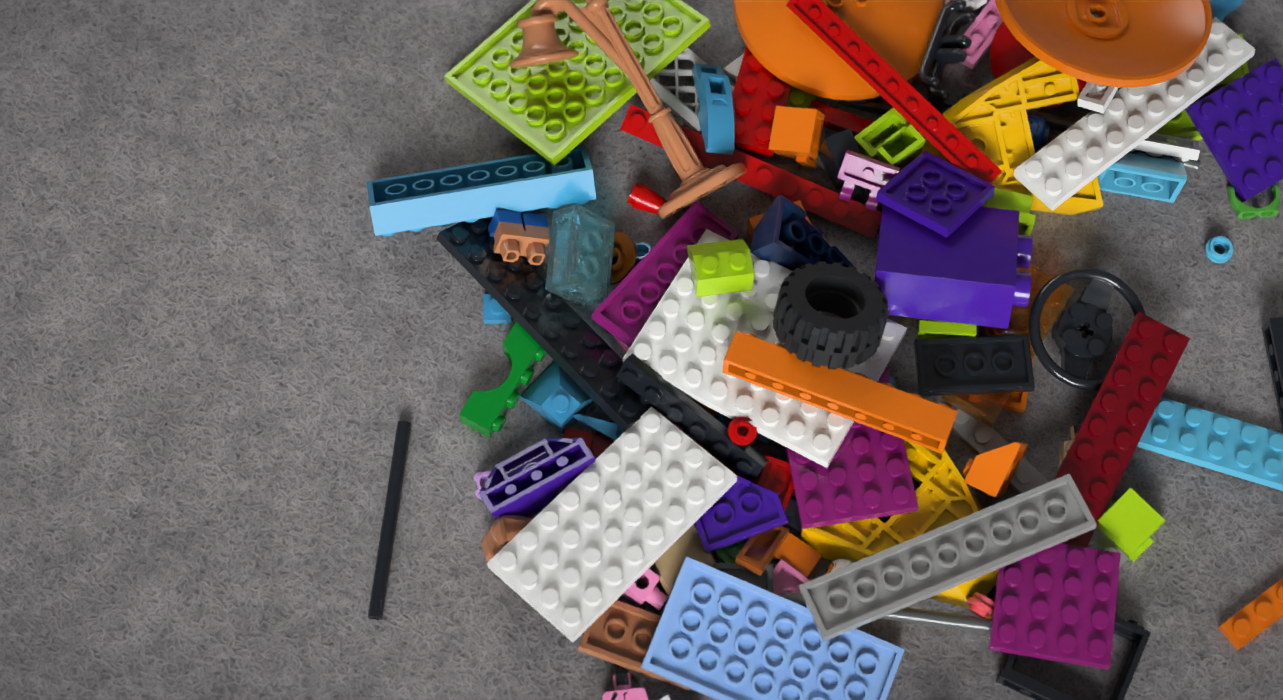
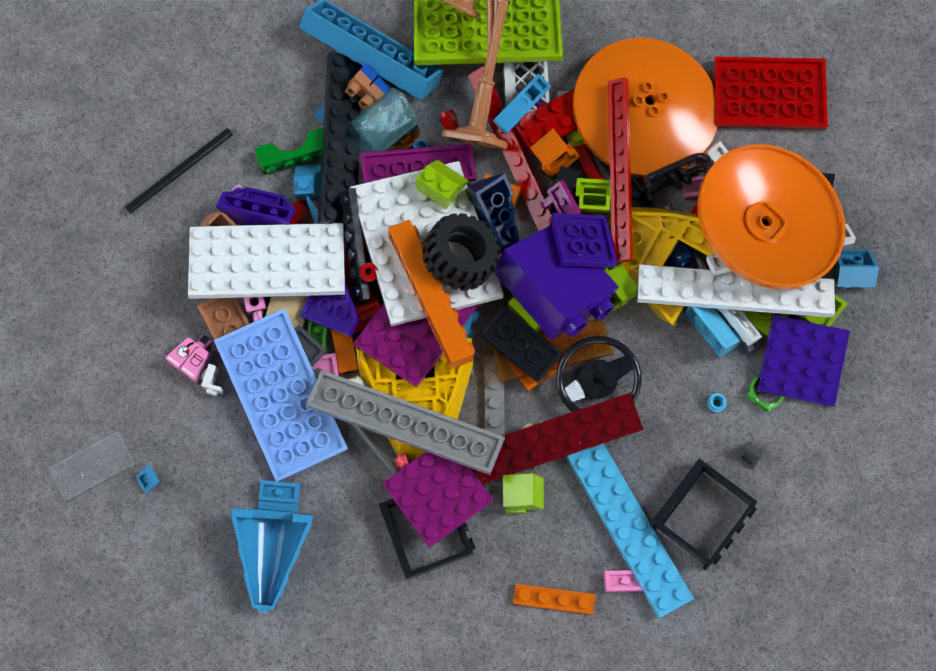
camera: 50 degrees right, 5 degrees up
(761, 549) = (328, 338): dark orange tile -> none
(995, 469) = (476, 405): orange slope -> none

